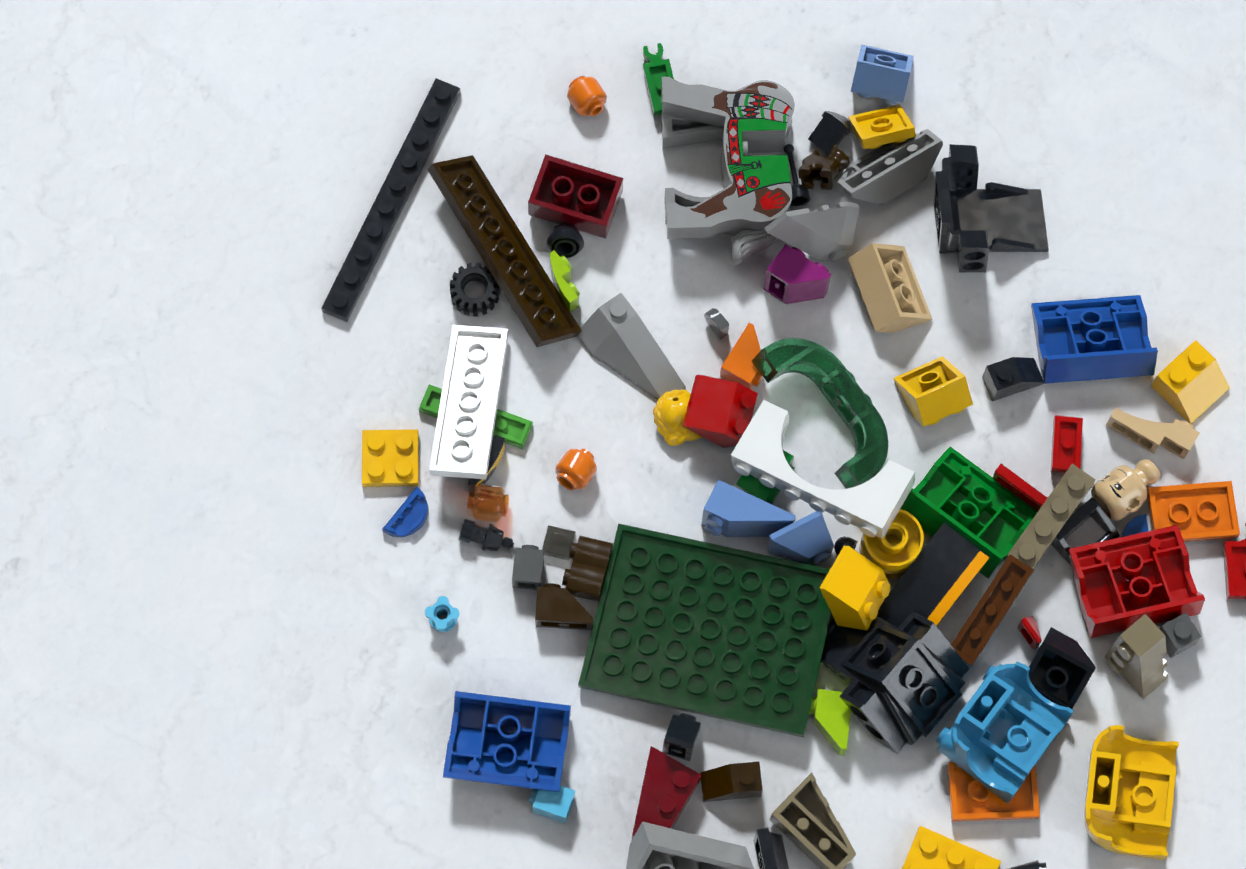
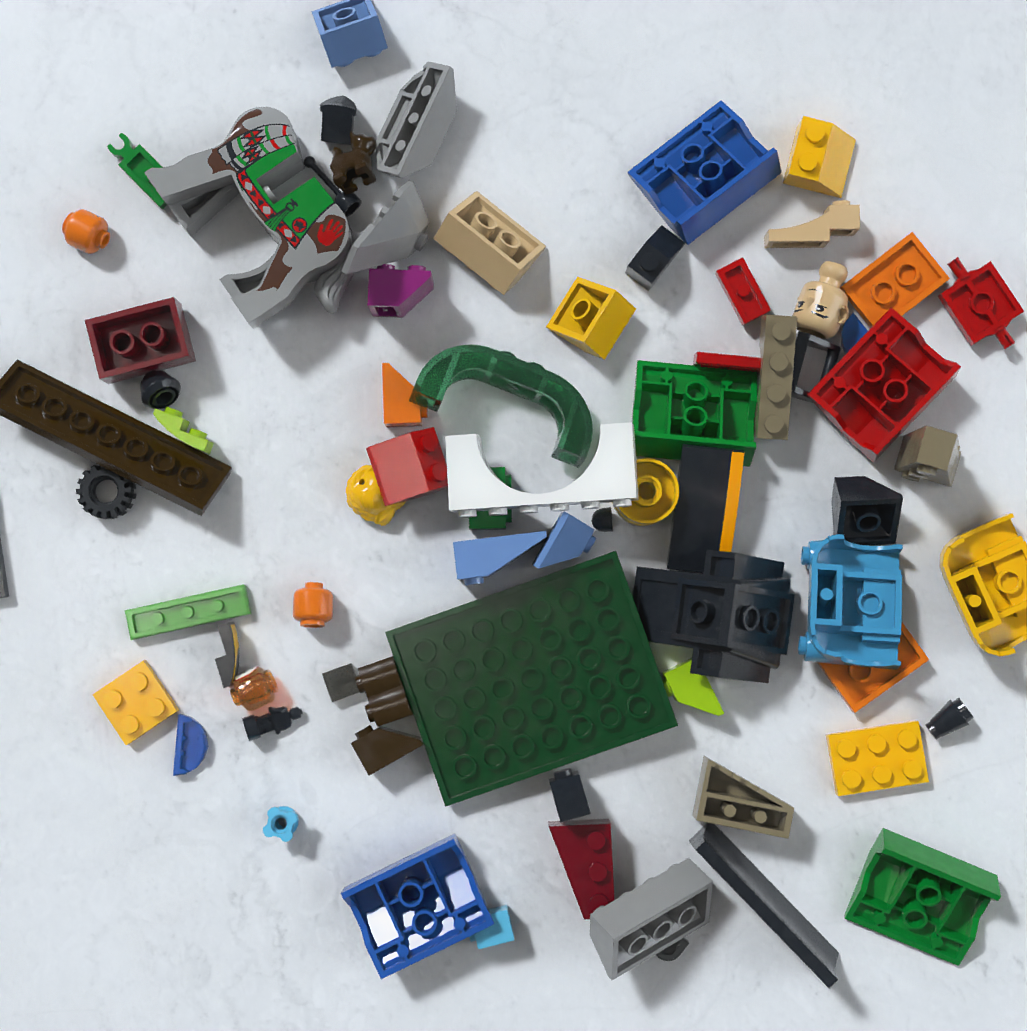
camera: 30 degrees left, 15 degrees up
(469, 402) = (173, 608): white plate -> none
(527, 567) = (329, 726): dark grey brick -> none
(624, 342) = (280, 455): light grey wedge -> none
(717, 323) = (351, 379): dark grey tile -> none
(732, 782) = (638, 805): dark brown slope -> none
(854, 589) = (640, 560): yellow slope -> none
(882, 127) = (383, 85): yellow plate -> none
(983, 219) = (535, 117): black piece -> none
(991, 609) = (773, 497): reddish brown plate -> none
(1029, 630) = (815, 490): red slope -> none
(1180, 634) = (951, 410): dark grey brick -> none

